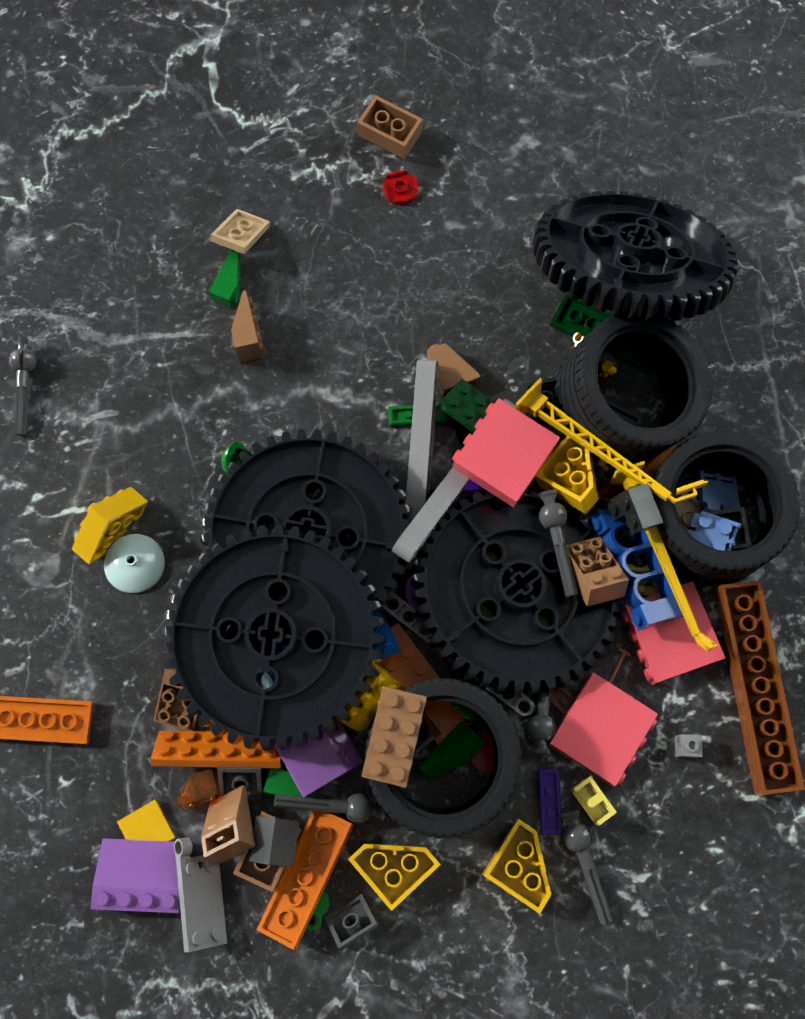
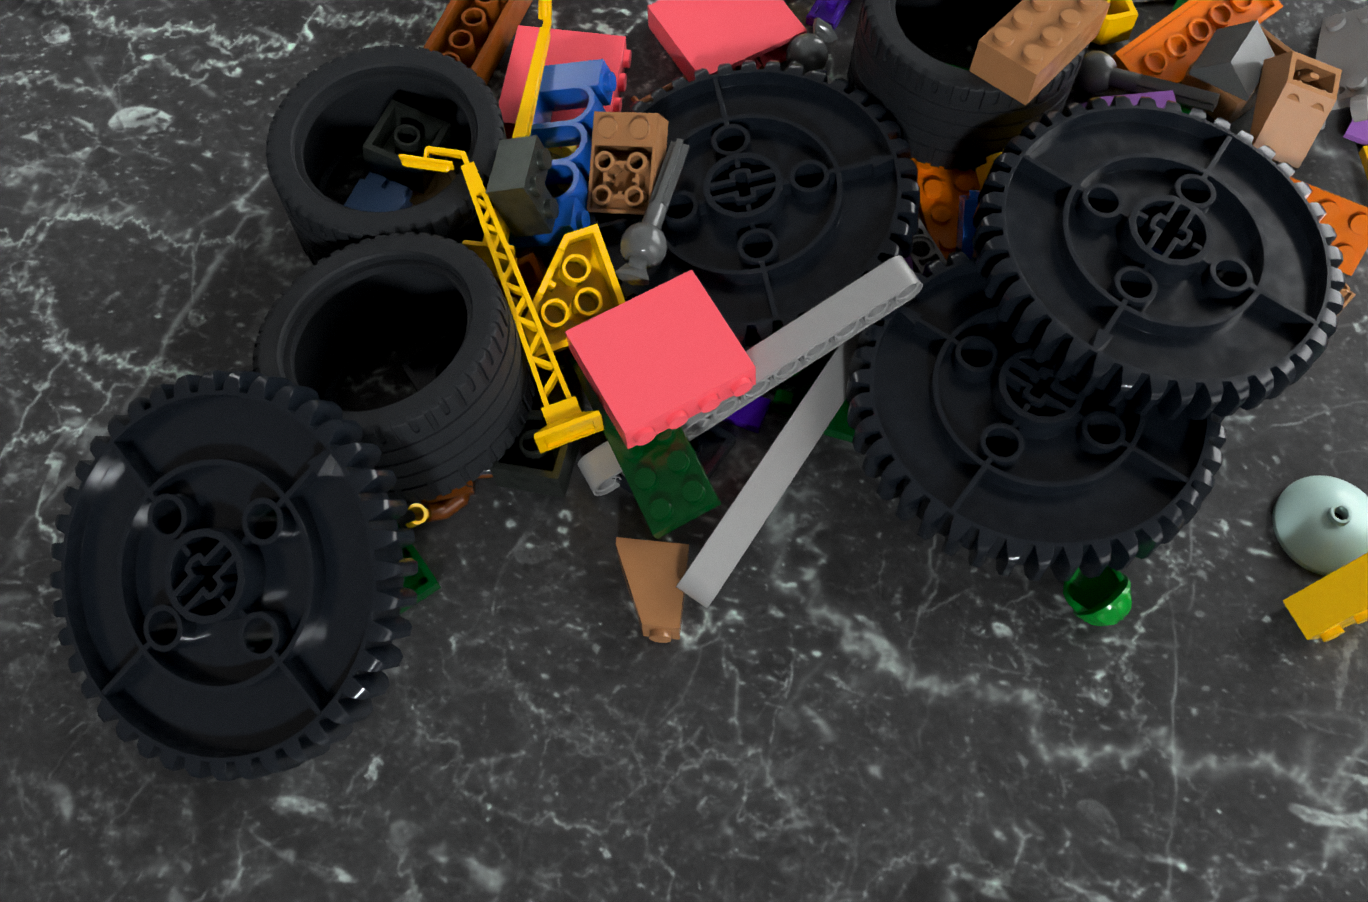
camera: 150 degrees left, 10 degrees down
(197, 788) = (1322, 173): clear orange slope -> none
(246, 331) = (1002, 812): medium nougat slope -> none
(403, 415) = (766, 550): green tile -> none
(713, 530) = (431, 125): medium blue plate -> none

